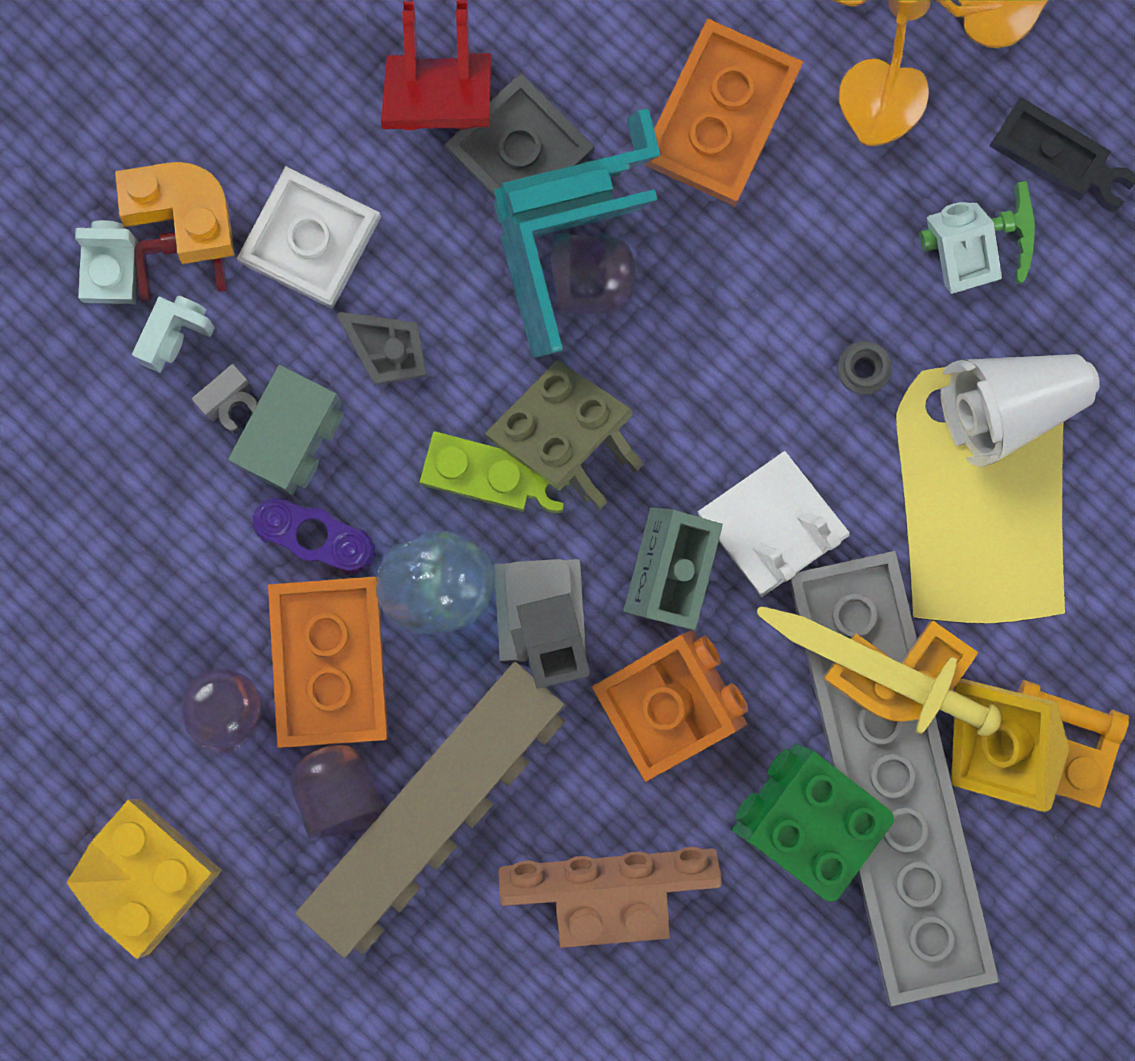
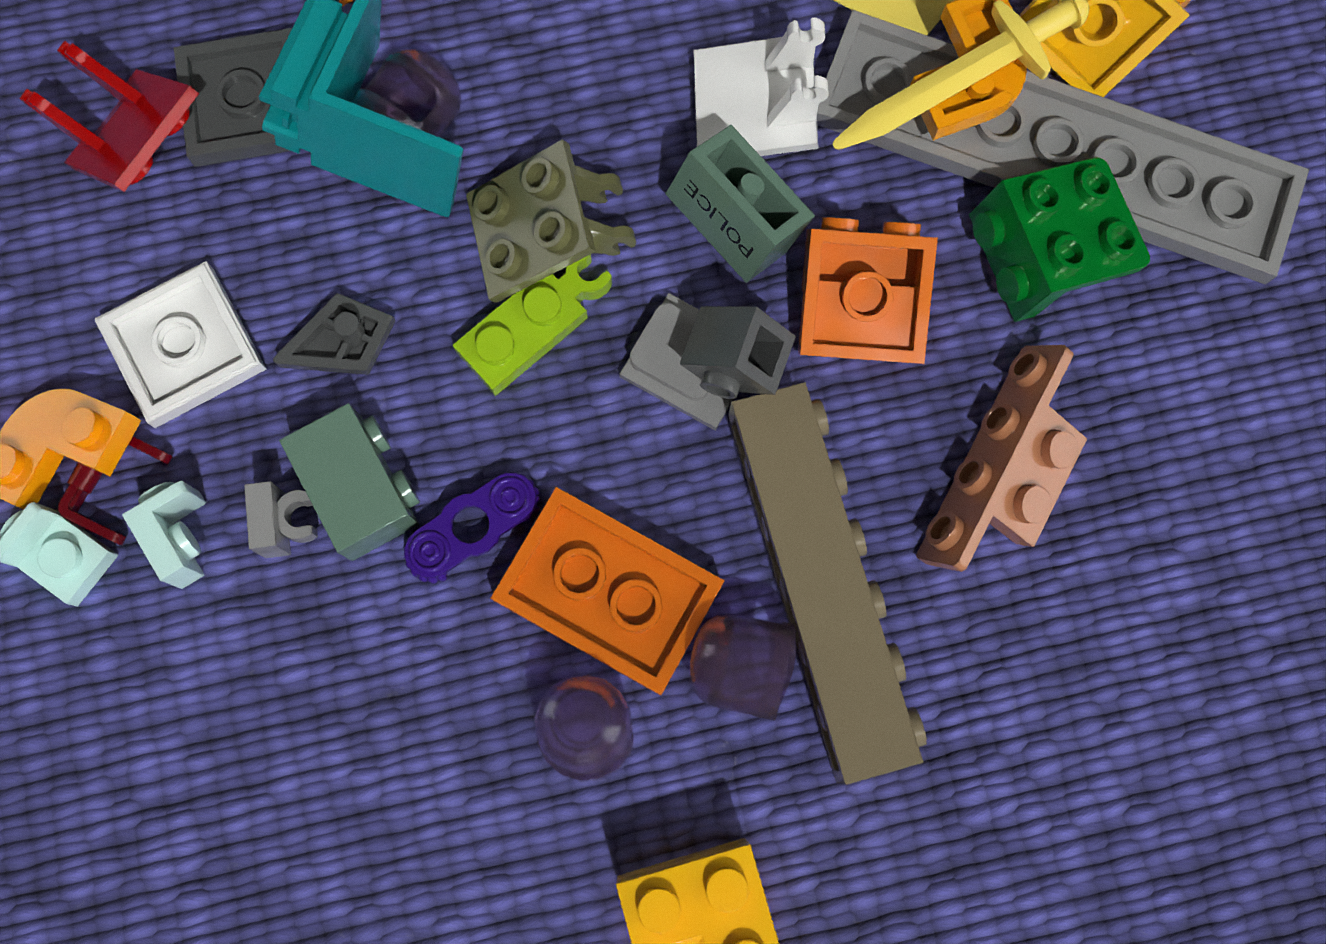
camera: 60 degrees left, 5 degrees down
(435, 583) = (601, 434): clear light blue piece -> none

